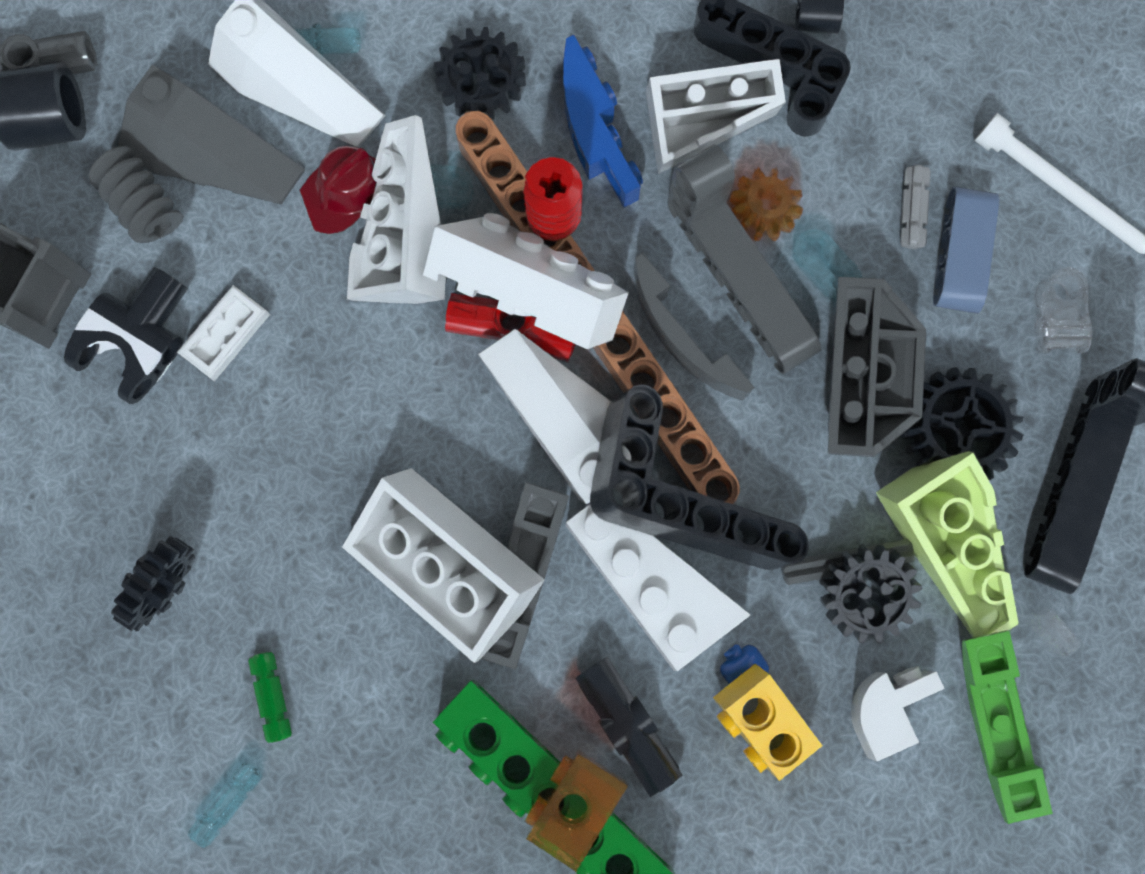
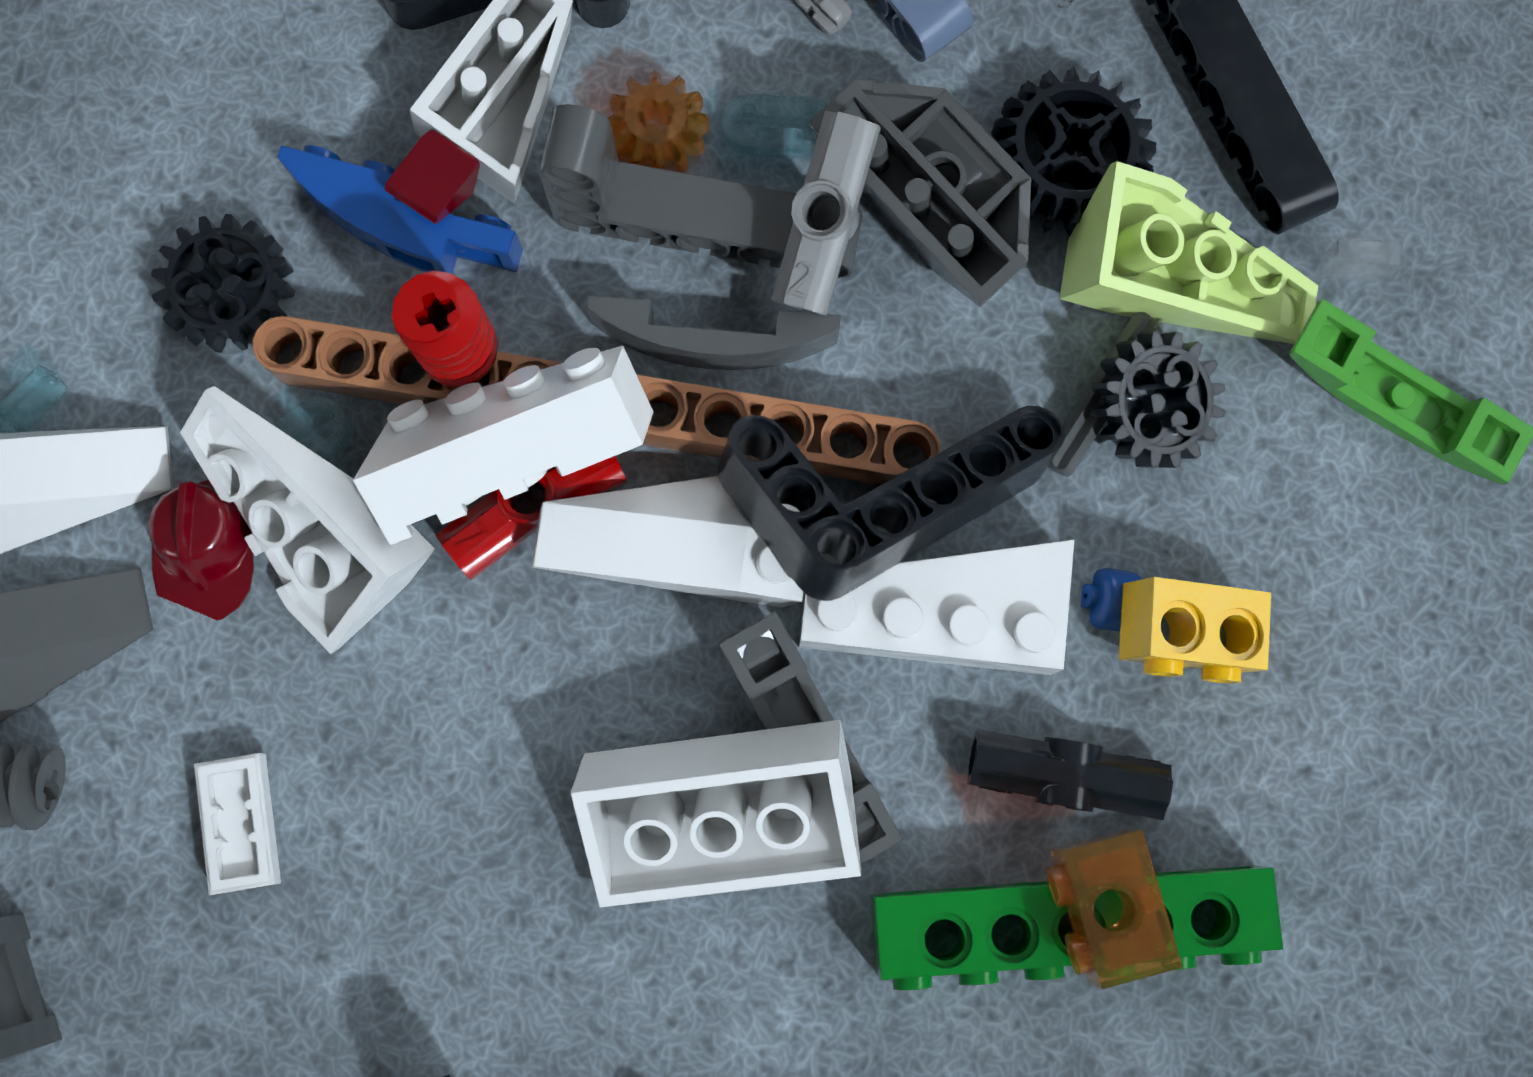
camera: 50 degrees left, 0 degrees up
(133, 329) = (136, 921): black connector -> none
(628, 122) = (434, 177): none -> dark red slope
(824, 314) = (838, 173): none -> light grey piece
(879, 710) = (1284, 503): white brick -> none

